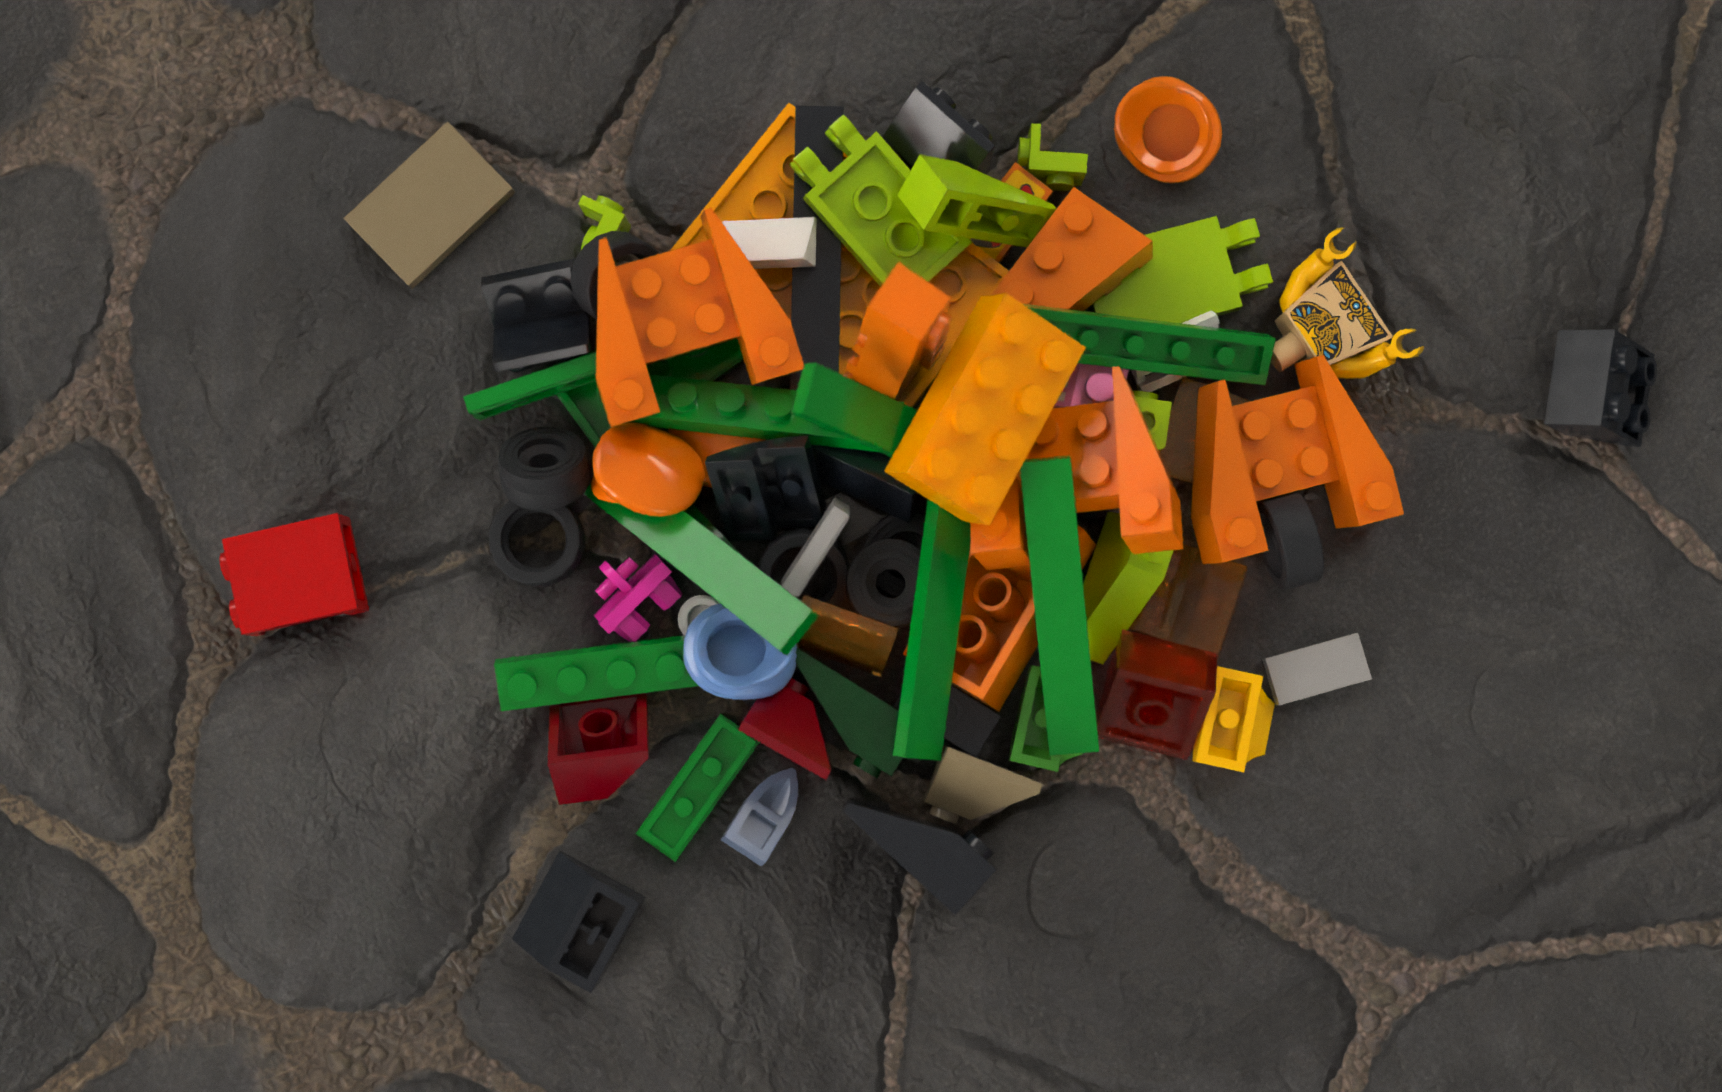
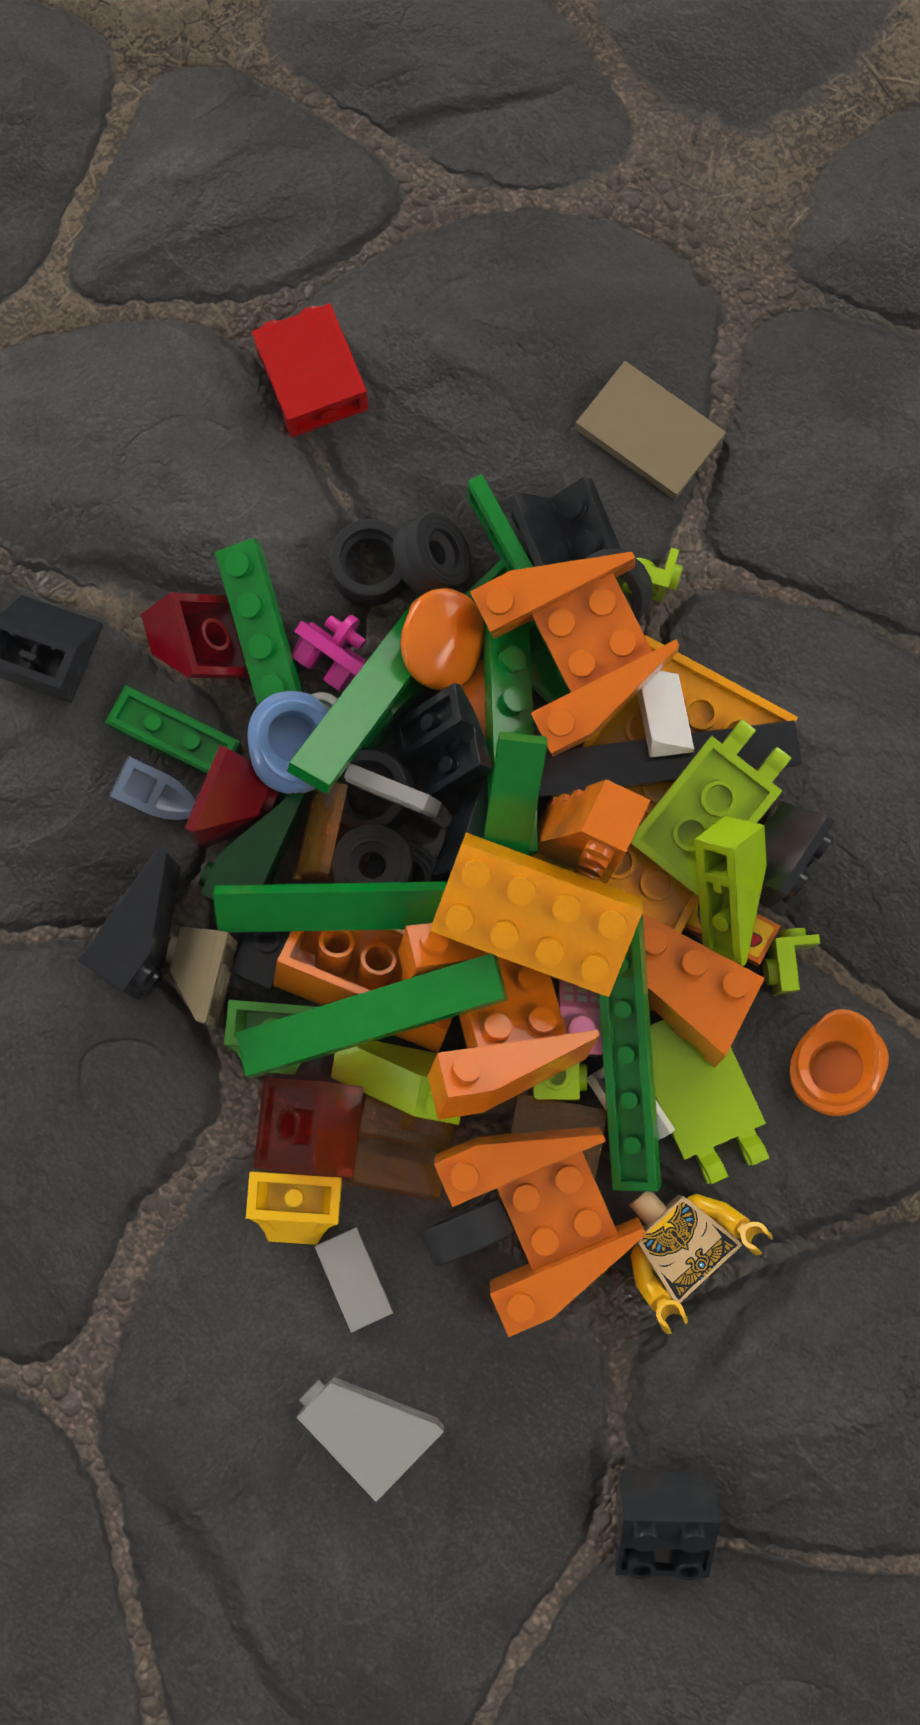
camera: 80 degrees right, 5 degrees down
(1474, 674) = (367, 1432): none -> light grey slope

